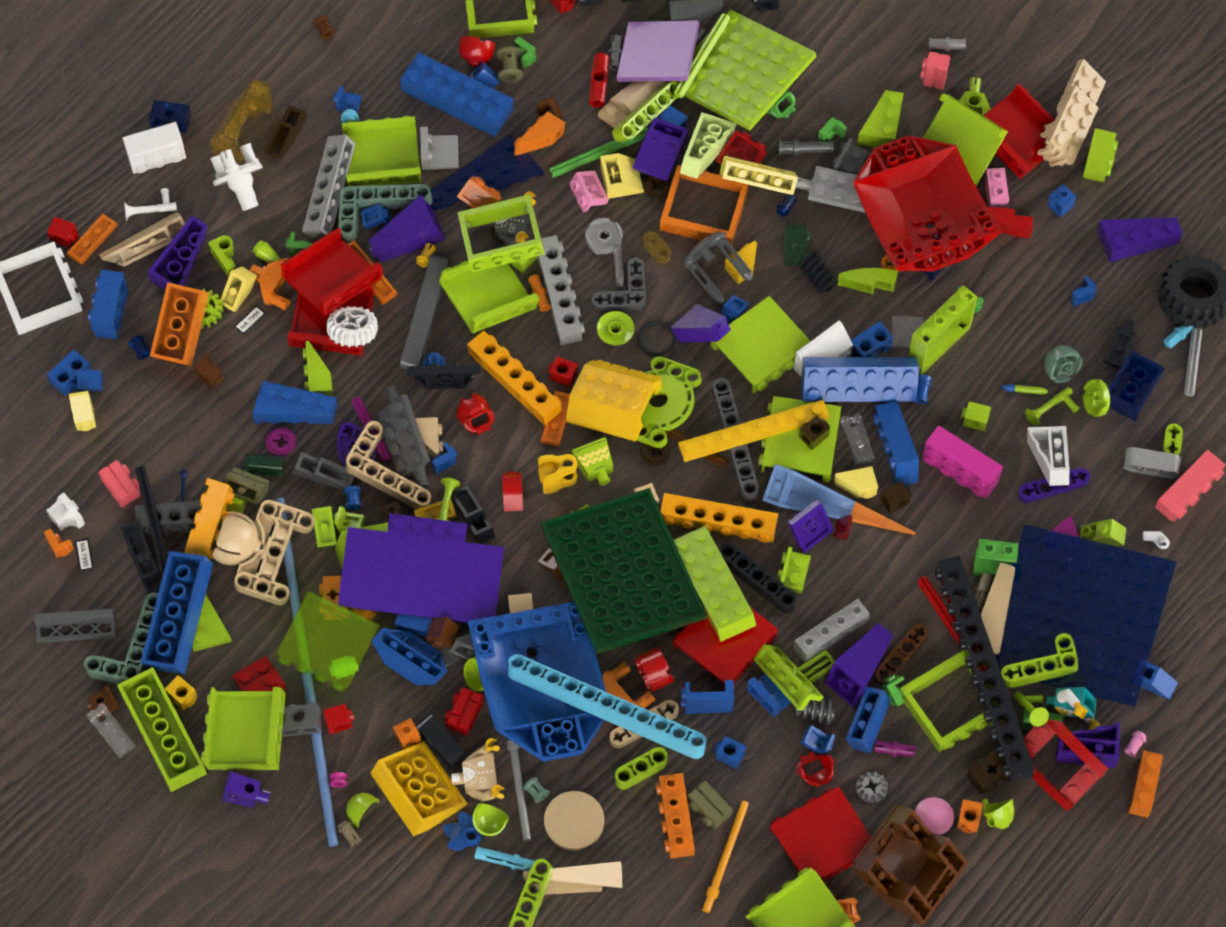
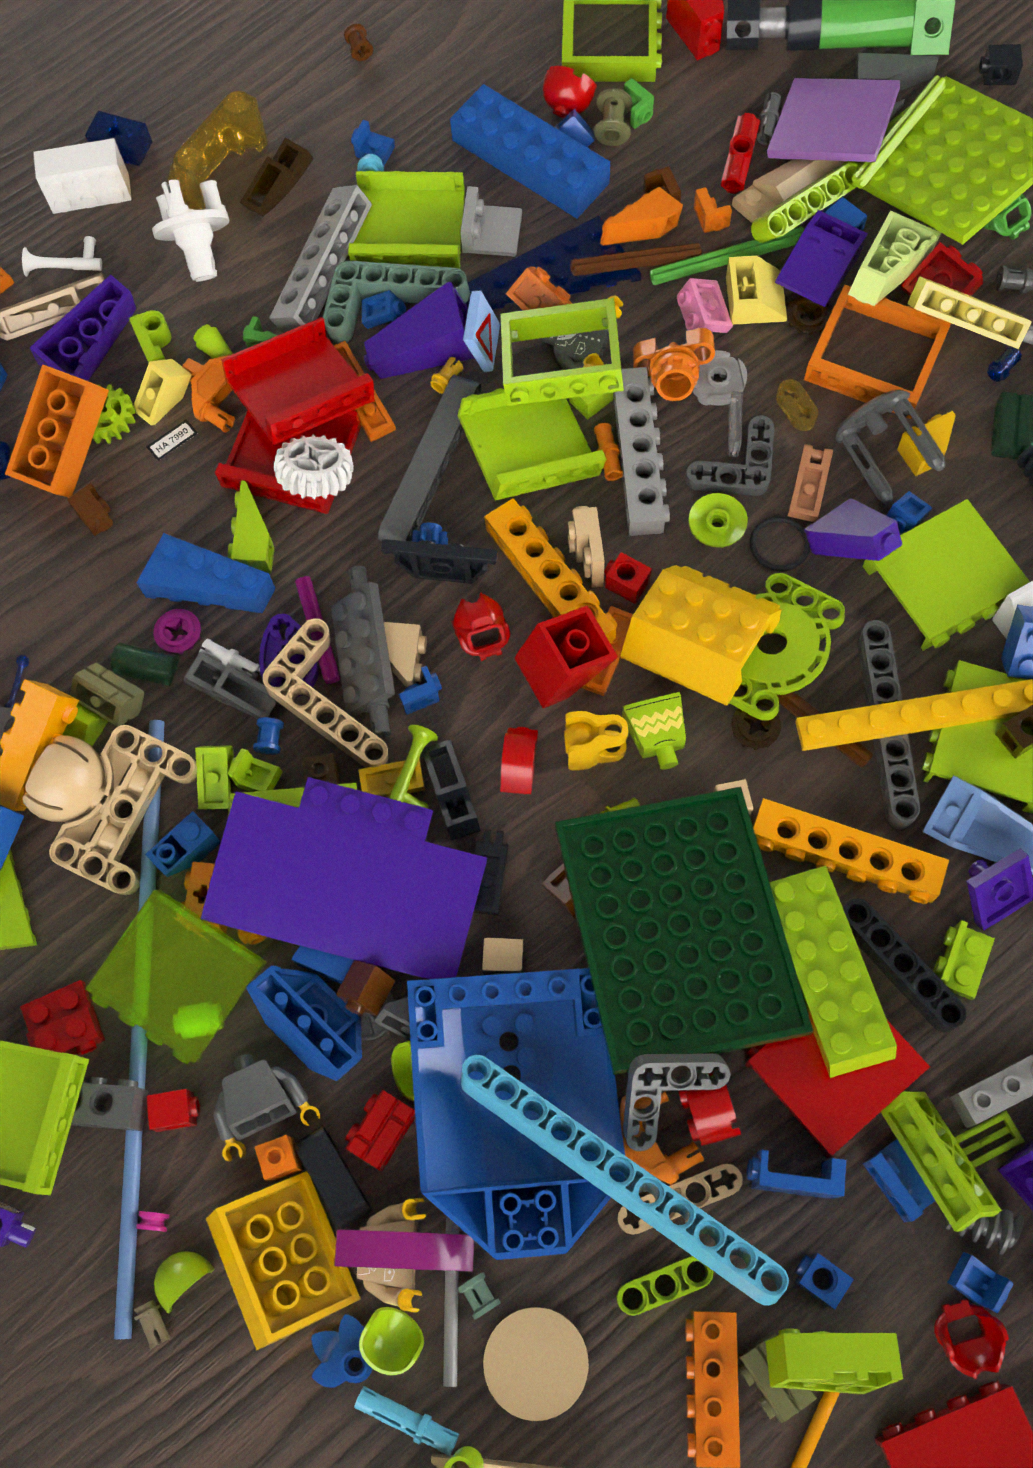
camera: 15 degrees right, 5 degrees up
(314, 568) = (183, 845): none -> blue slope
(317, 453) = (231, 658): none -> white pin
(387, 704) = (255, 1100): none -> dark grey torso
(445, 224) = (481, 331): none -> light blue tile
(489, 767) = (404, 1250): none -> magenta slope
(507, 569) = (491, 886): none -> black hinge
(531, 424) = (564, 655): none -> red slope
(534, 353) = (586, 542): none -> tan plate
(539, 162) = (634, 259): none -> reddish brown axle
(575, 234) = (675, 367): none -> orange beam
(583, 126) = (708, 214): none -> orange bracket
(619, 657) = (654, 1085): none -> dark grey beam
(671, 297) = (810, 484): none -> nougat plate
(738, 786) = (833, 1361): none -> lime wedge

